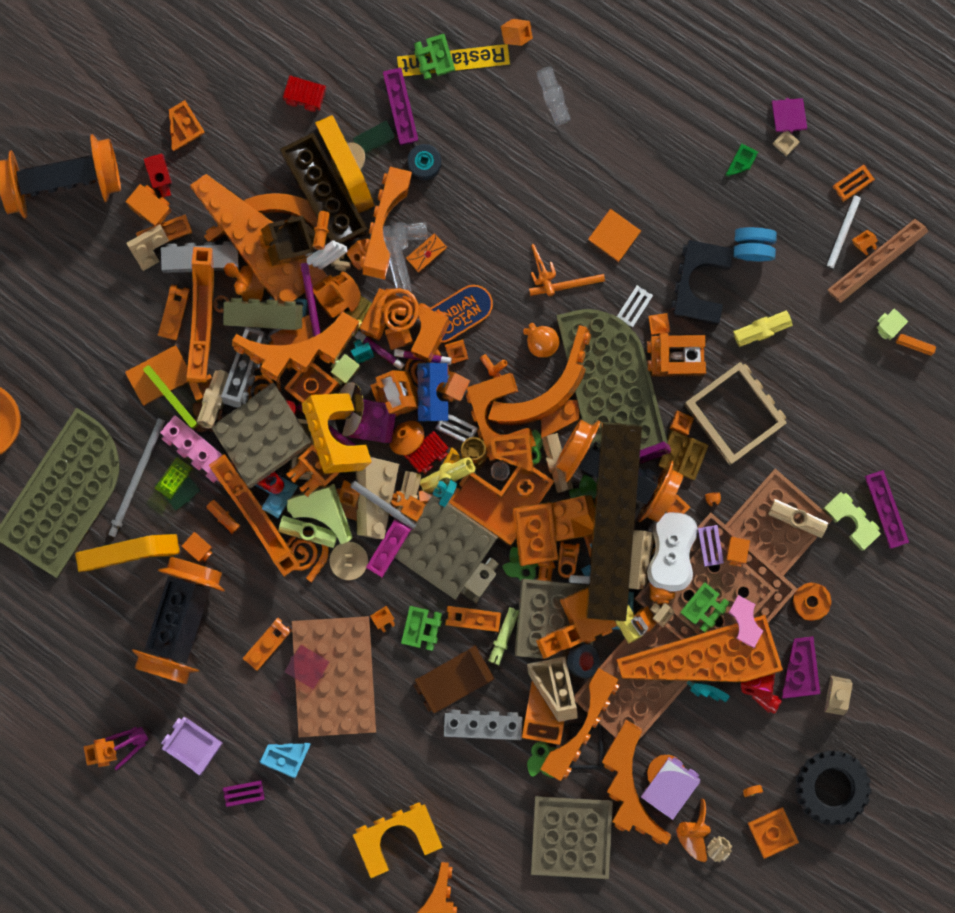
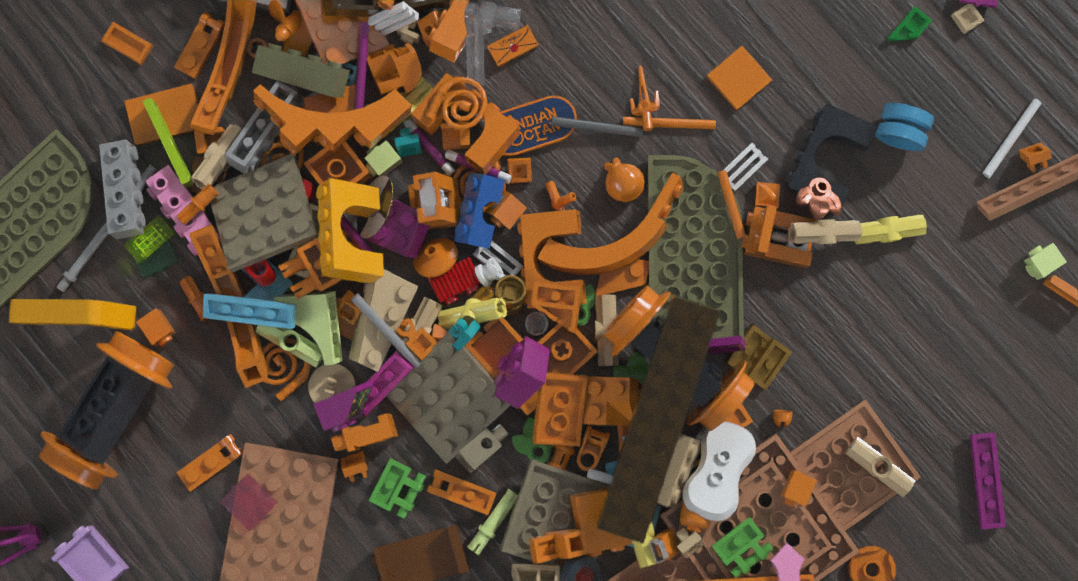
camera: 15 degrees right, 0 degrees up
(114, 325) = (127, 43): none -> orange tile
(142, 443) = (122, 189): none -> light grey brick
(208, 440) = (197, 203): none -> orange axle
(270, 515) = (249, 311): none -> medium azure plate
(362, 575) = (344, 407): none -> magenta slope
(386, 592) = (362, 436): none -> orange hips
(452, 439) = (489, 272): none -> white wheel
(498, 511) = (521, 372): none -> magenta brick
(509, 302) = (596, 126): none -> dark grey bar
(632, 339) = (731, 204): none -> orange bar
(681, 423) = (766, 318): orange tile -> none
(700, 319) = (819, 201): none -> plate
(711, 343) = (824, 231): none -> tan piece
(712, 433) = (799, 337): tan window -> none
(718, 545) = (768, 453): lavender tile -> none
(840, 192) = (1018, 91): orange tile -> none
(865, 531) = (955, 501): yellowish green arch -> none

